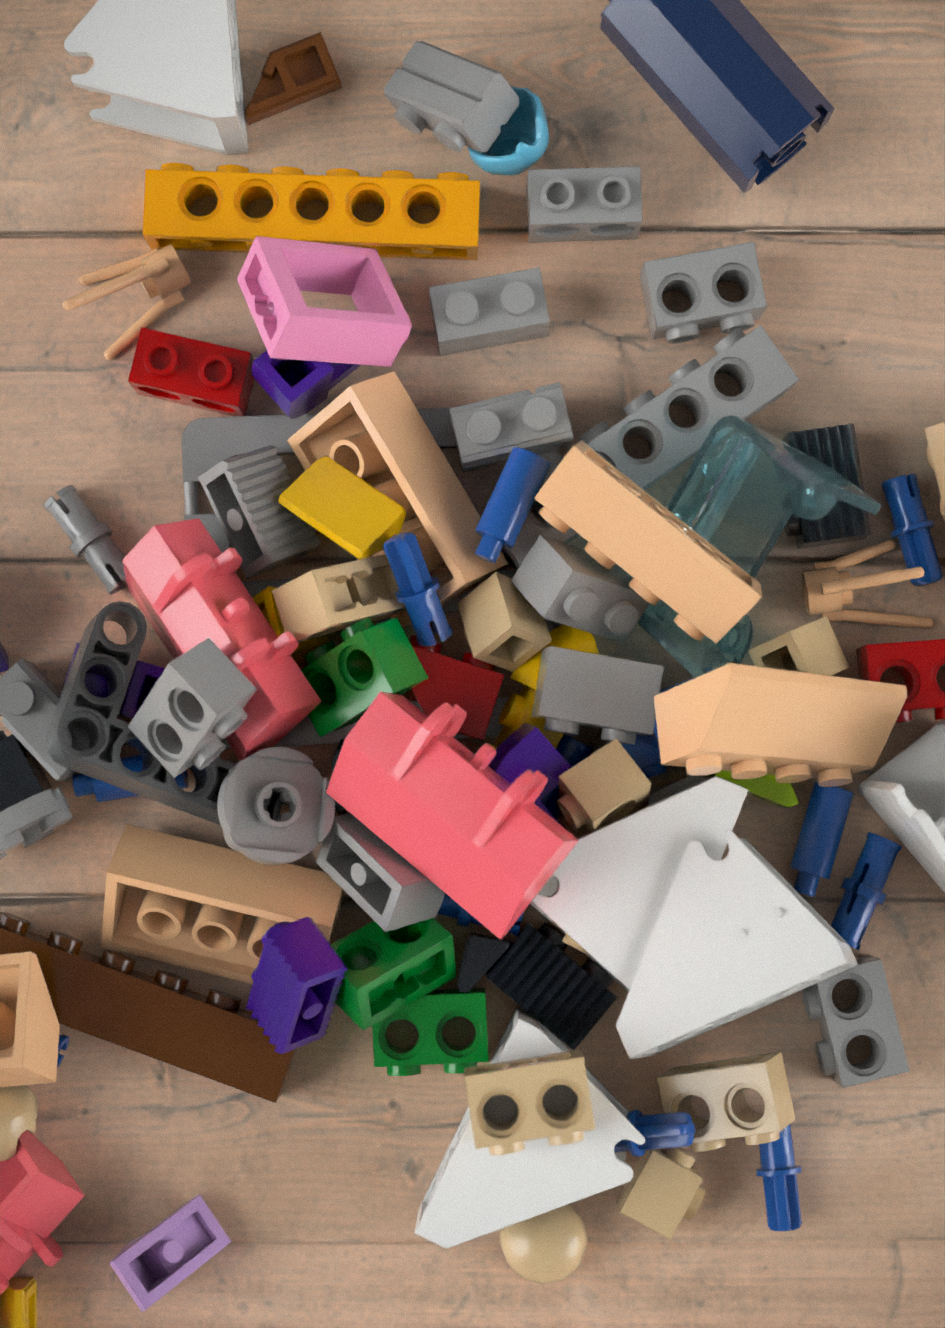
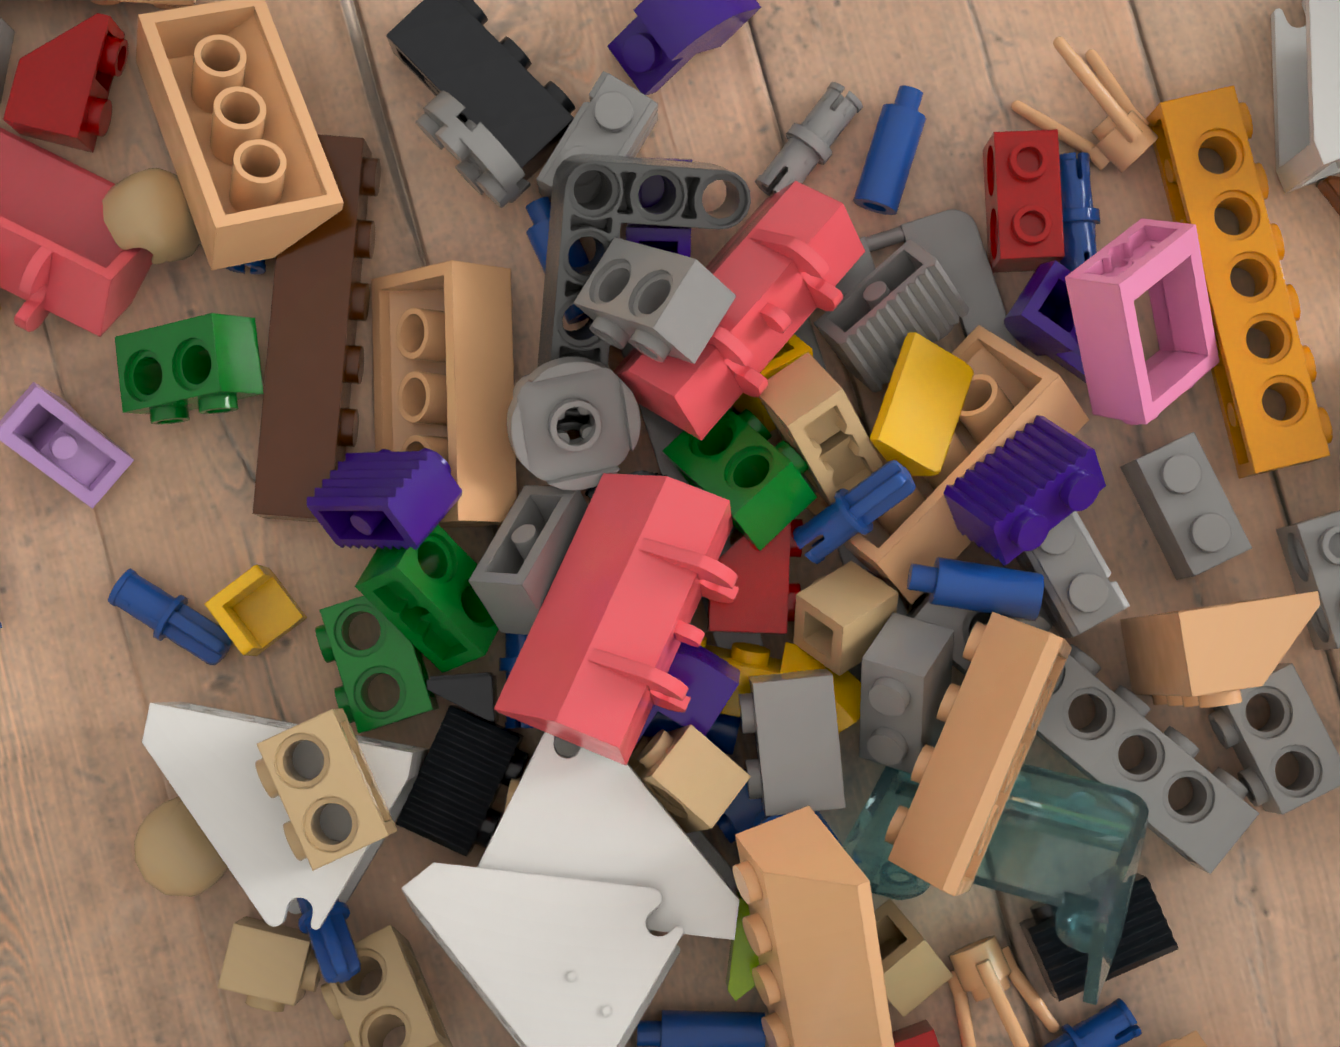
camera: 70 degrees right, 0 degrees up
(119, 472) = (891, 153): none -> blue cylinder
(133, 1123) = (189, 366): none -> green brick
(214, 329) = (1077, 210): none -> blue pin
(344, 1198) = (170, 617): none -> blue axle
(359, 1122) = (255, 610): none -> yellow panel
(439, 441) = (1025, 489): none -> dark purple brick
(615, 324) = (1212, 650): none -> light nougat slope

